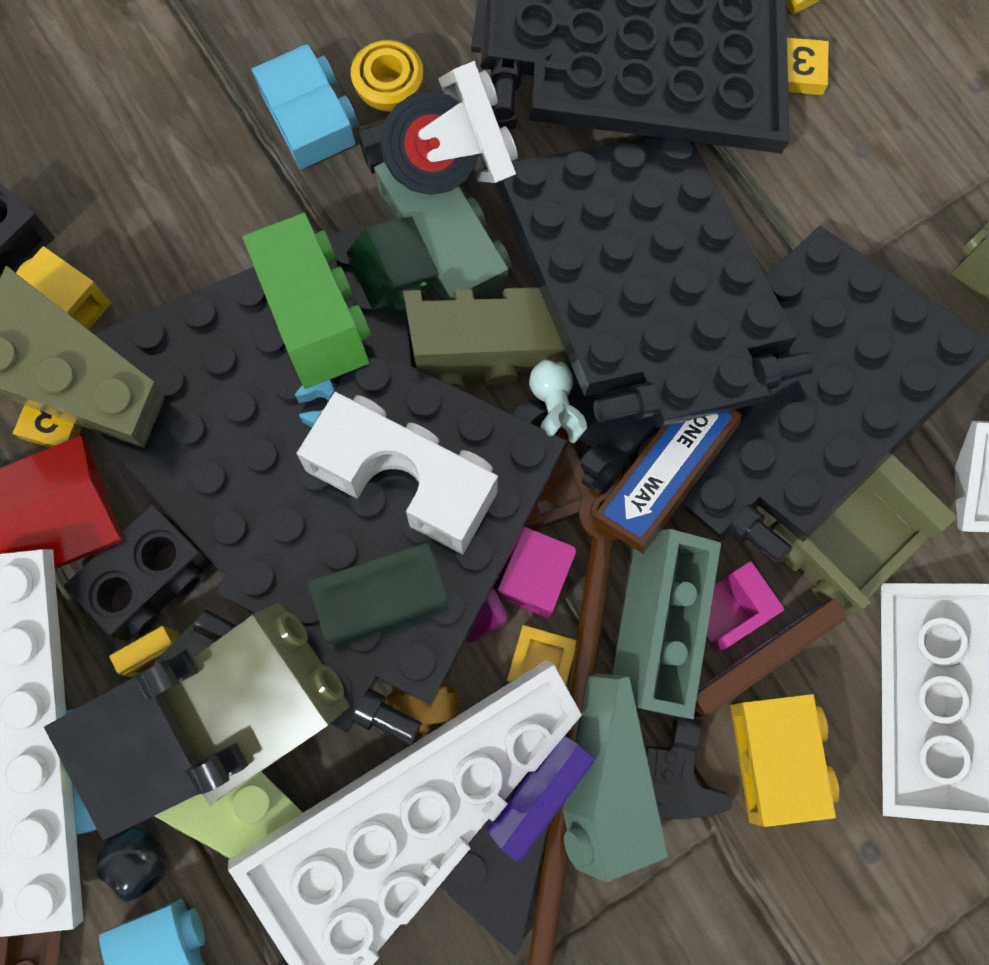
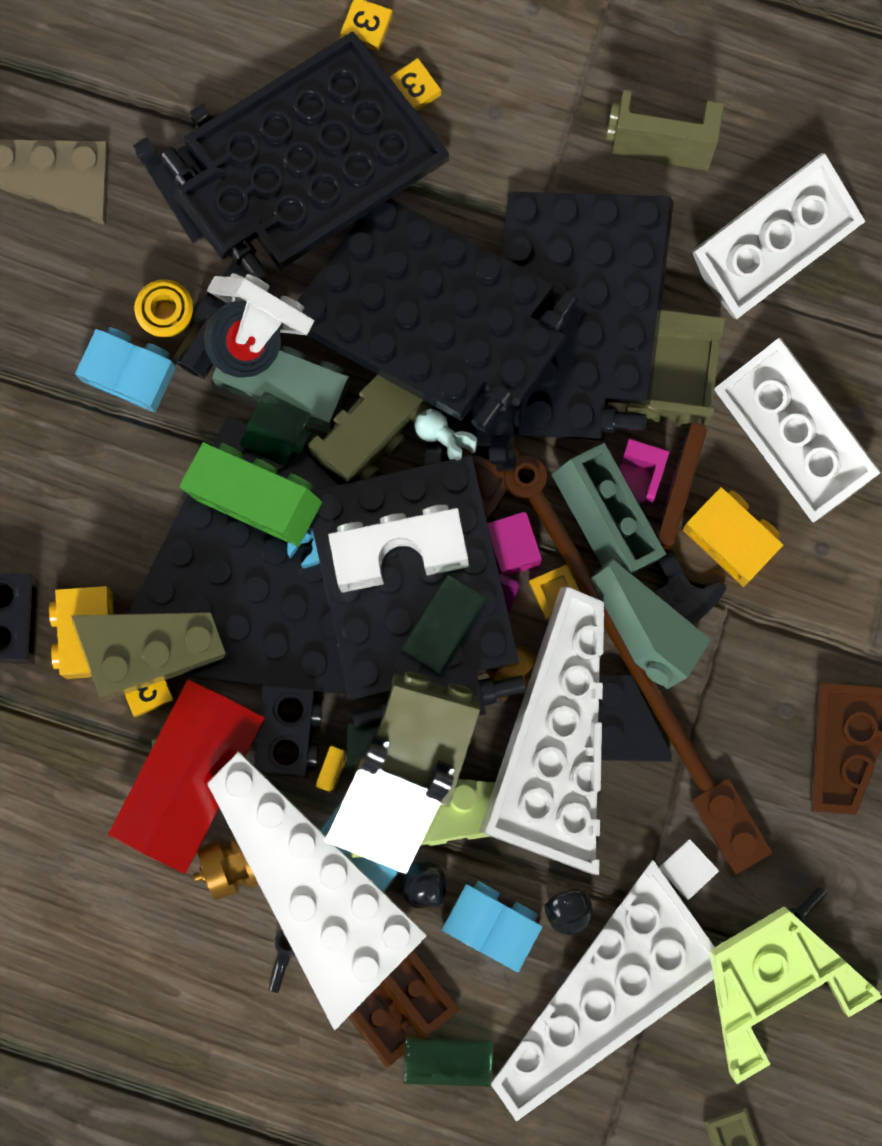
camera: 35 degrees left, 5 degrees up
(539, 798) = (617, 663): dark purple tile -> none
(663, 478) = (543, 432): tile -> none

